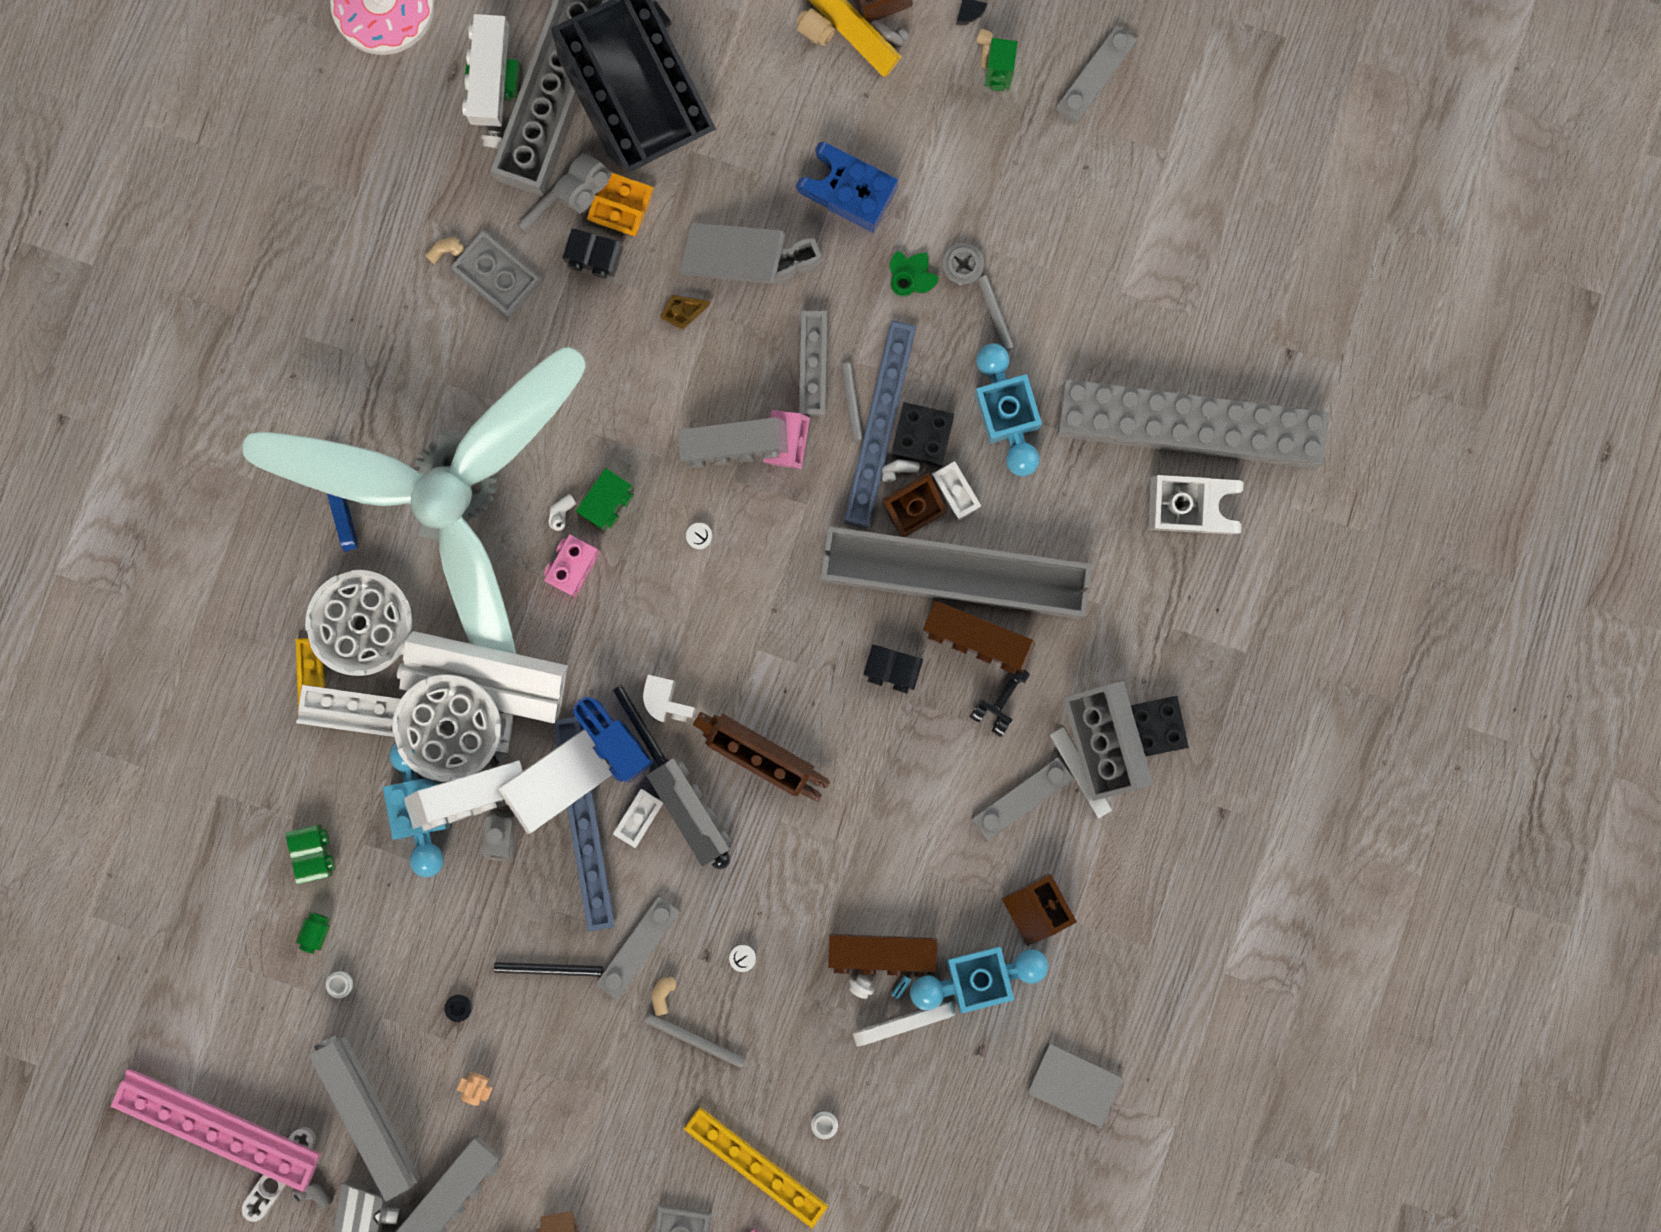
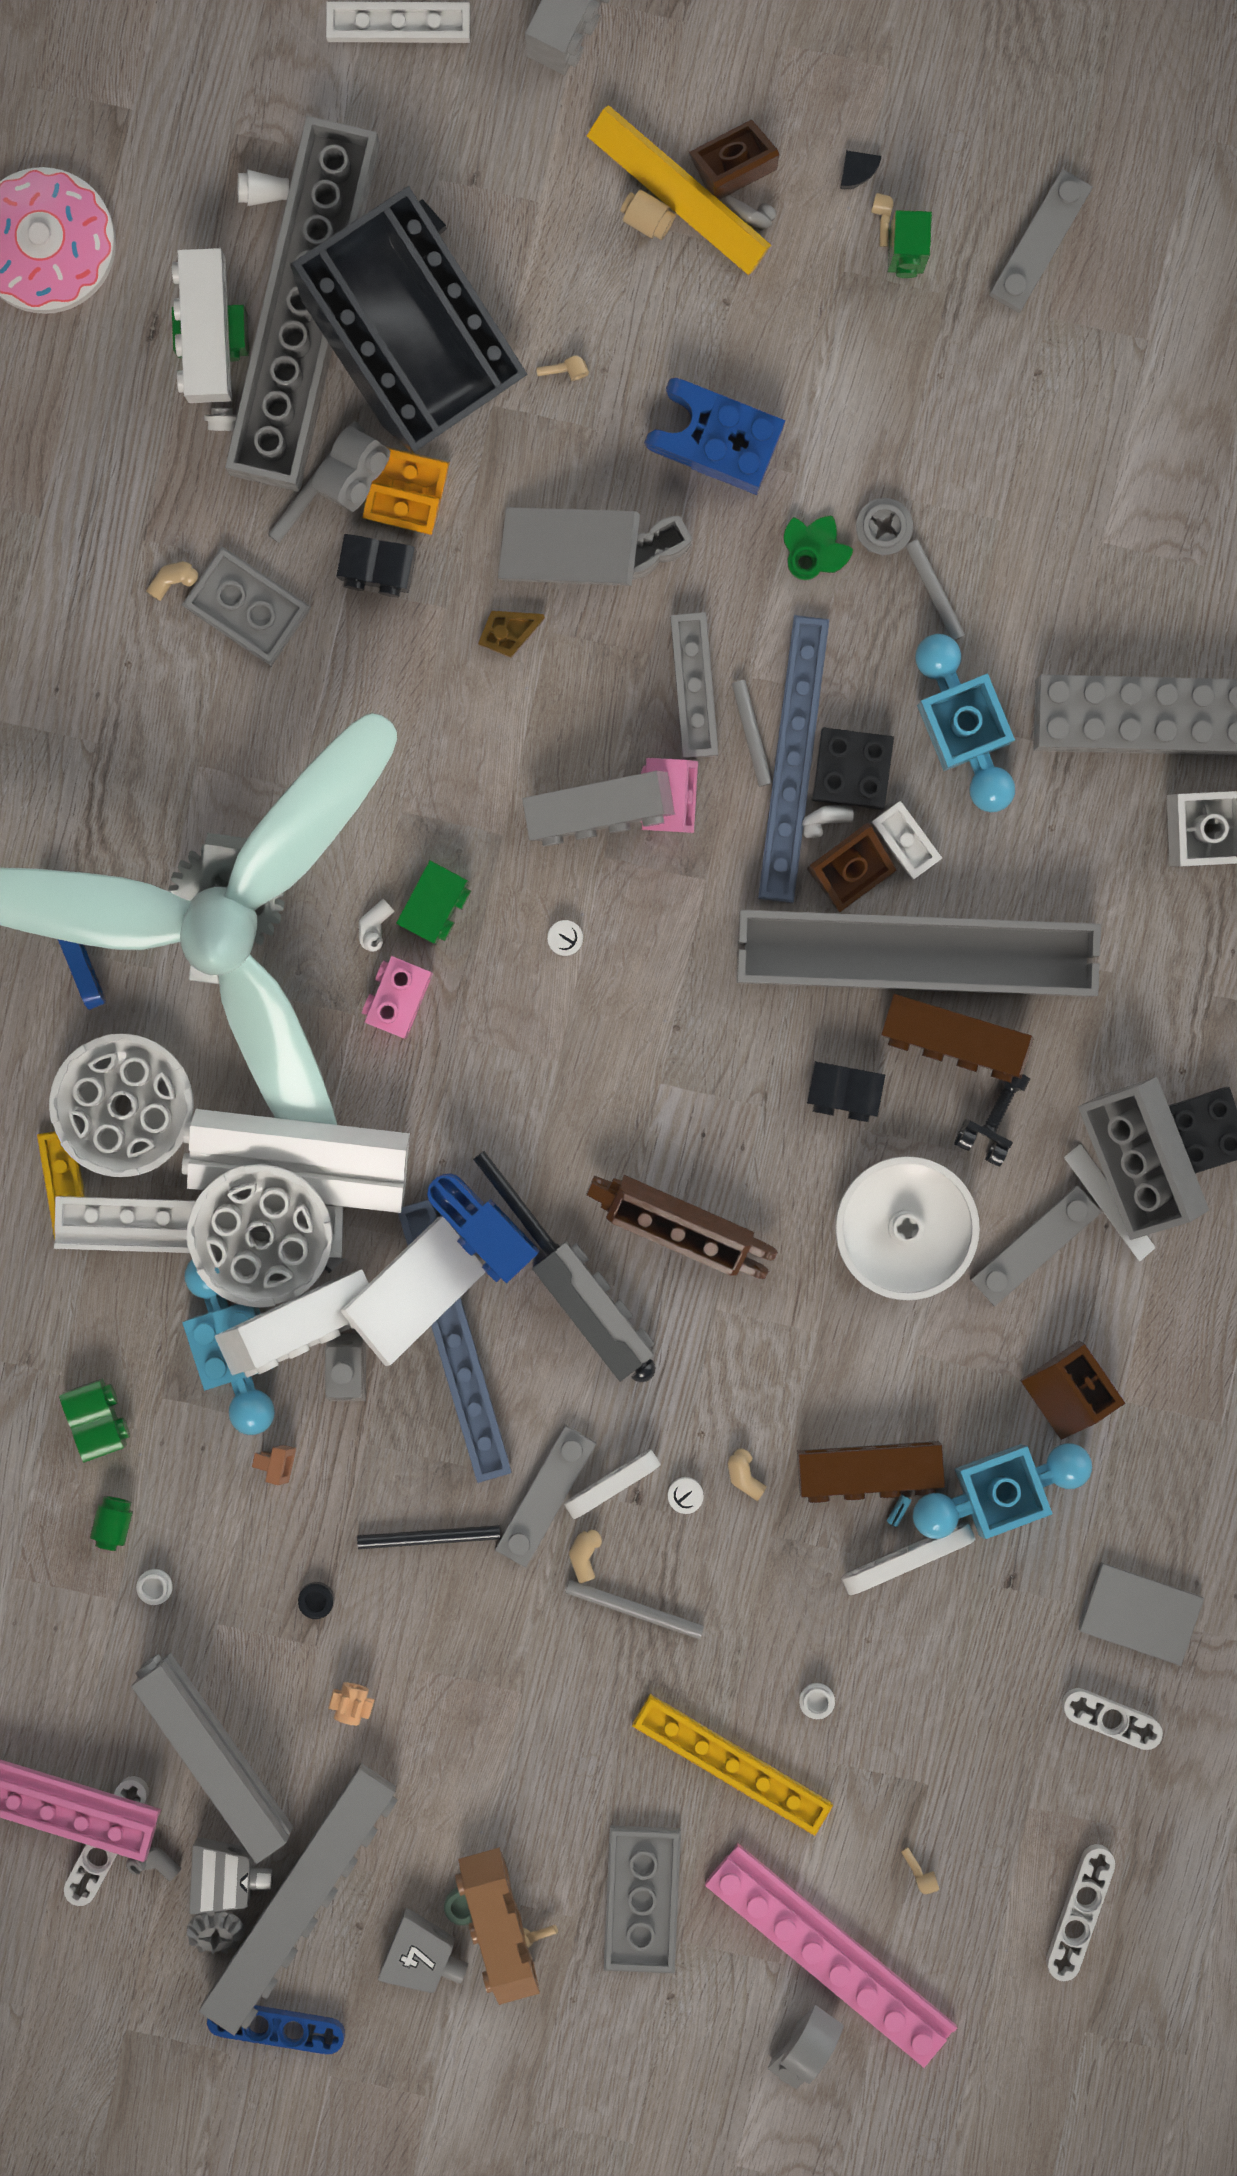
camera: 10 degrees left, 5 degrees up
(441, 902) = (277, 1464): none -> nougat tile
(638, 818) = (526, 1326): white plate -> none
(658, 698) = (535, 1169): white brick -> none
(688, 943) = (612, 1484): none -> white beam
(751, 127) = (574, 365): none -> tan hand
(785, 947) = (741, 1475): none -> tan arm
(861, 986) = (846, 1516): white plate -> none
(927, 774) = (907, 1228): none -> white dish
(1066, 1166) = (1140, 1719): none -> white beam

